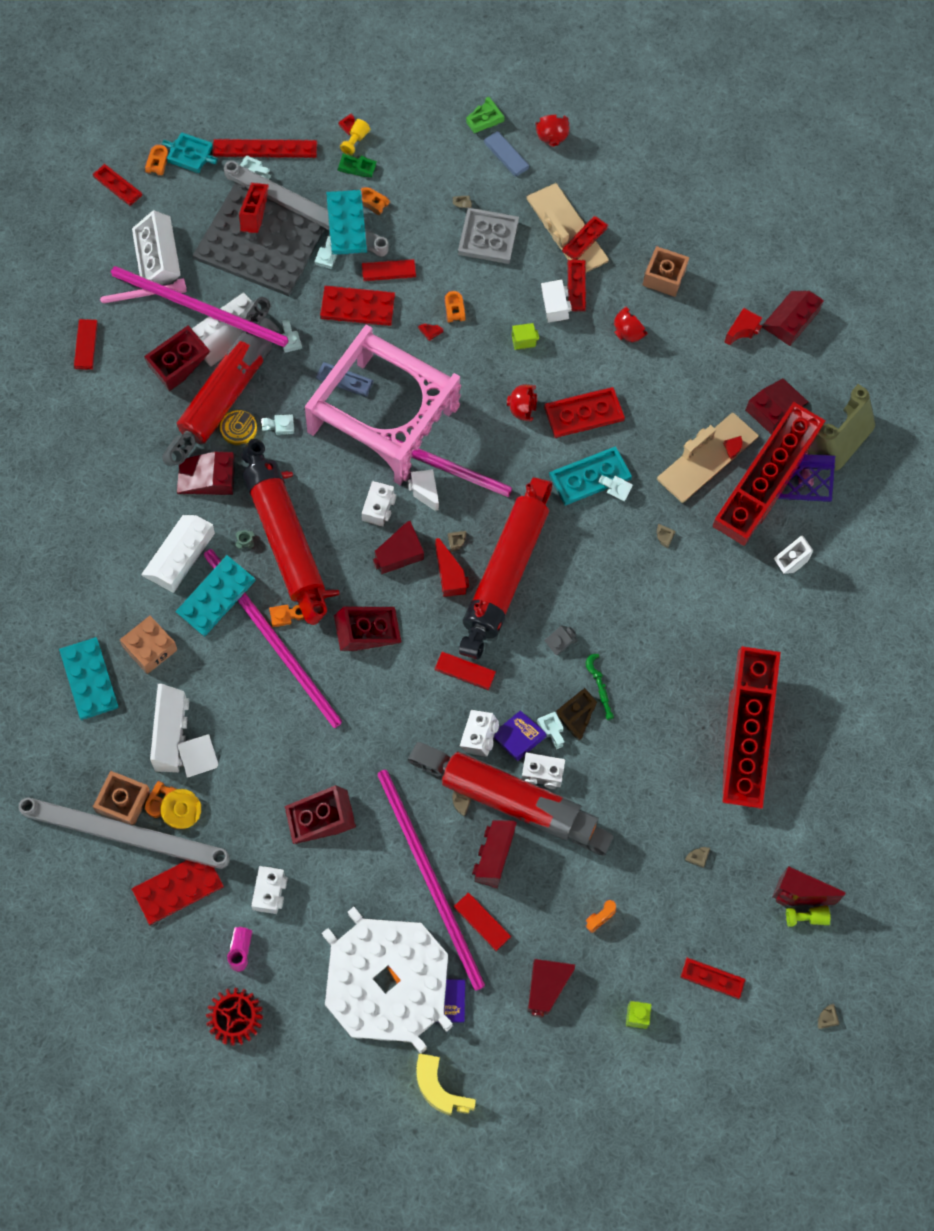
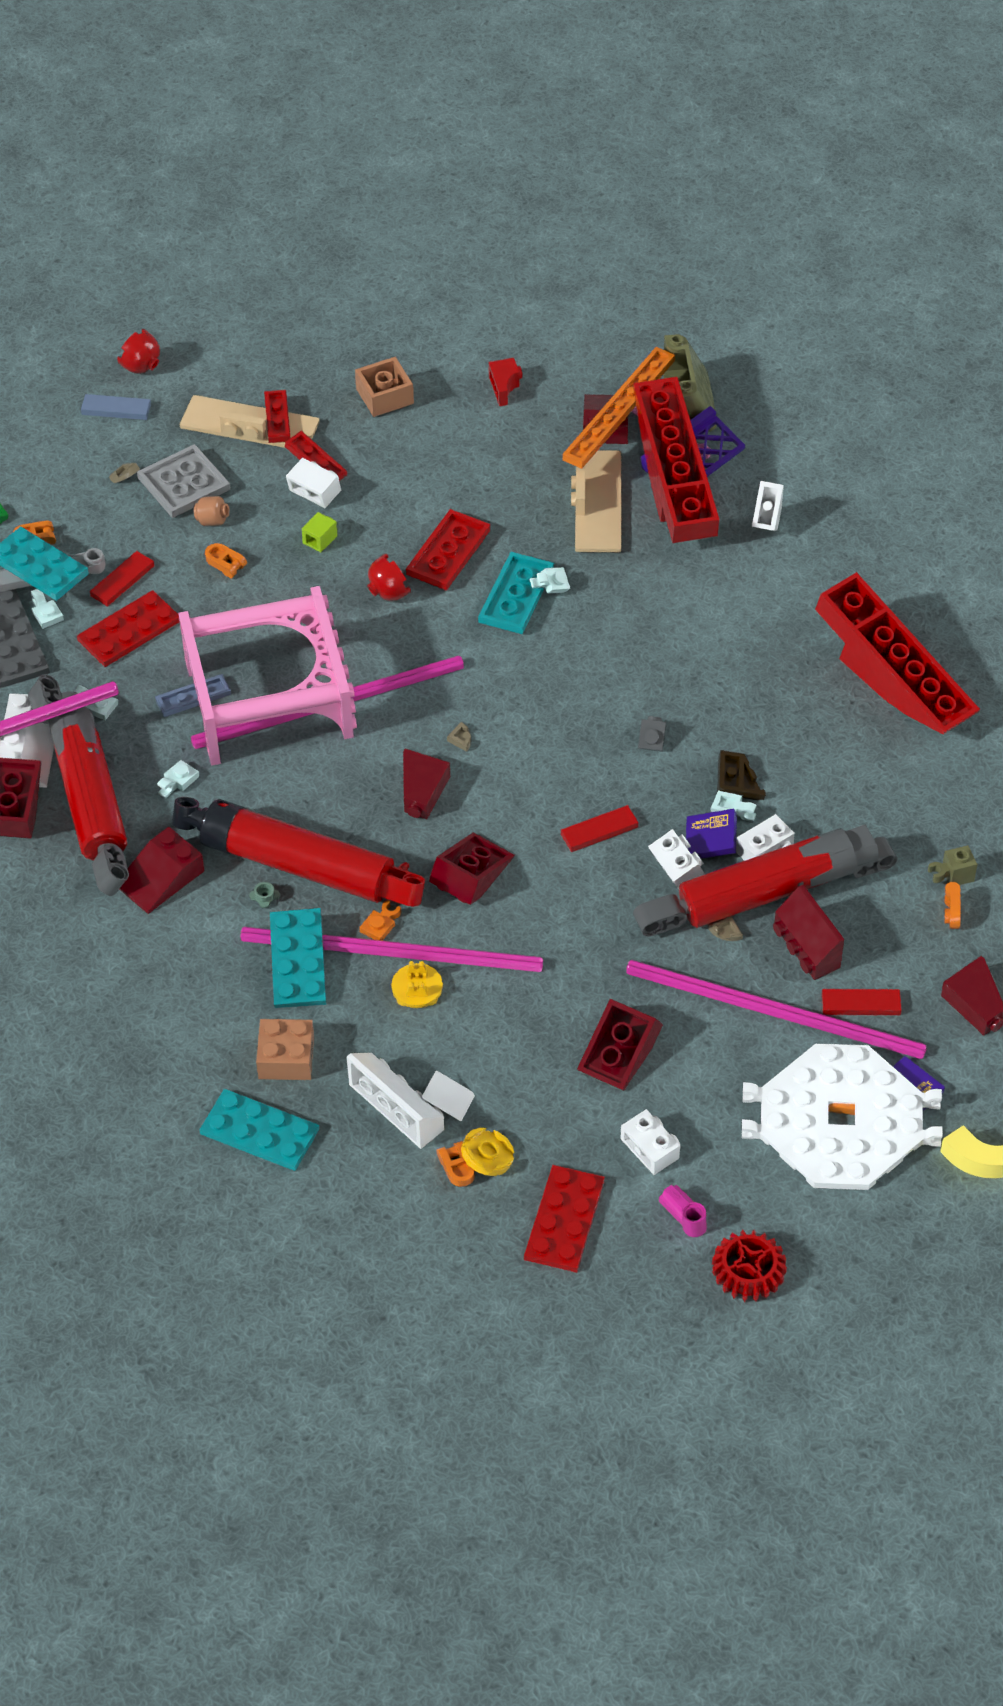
camera: 40 degrees left, 15 degrees down
(121, 798) = (424, 1189): nougat brick -> none
(124, 833) = (459, 1216): light grey piece -> none
(179, 552) = (213, 954): white slope -> none
(238, 427) = (141, 812): tile -> none
(253, 678) = (417, 985): none -> yellow plate
(378, 503) = (355, 763): white brick -> none
(424, 488) = (383, 717): white slope -> none
(430, 331) = (224, 596): red tile -> none
(451, 573) = (489, 762): red slope -> none
(480, 269) = (211, 511): none -> nougat head
(484, 116) = (58, 391): bright green wing -> none
(505, 568) = (538, 716): red piece -> none
(602, 692) = (736, 745): green piece -> none
(628, 326) = (406, 450): red cylinder -> none
(632, 894) = (957, 866): none -> olive brick
(665, 535) = (636, 586): dark tan tile -> none
(698, 856) = (971, 797): dark tan tile -> none
(733, 446) = (611, 473): red tile -> none
(777, 407) = (616, 409): none -> orange plate
(793, 315) = (535, 339): dark red slope -> none

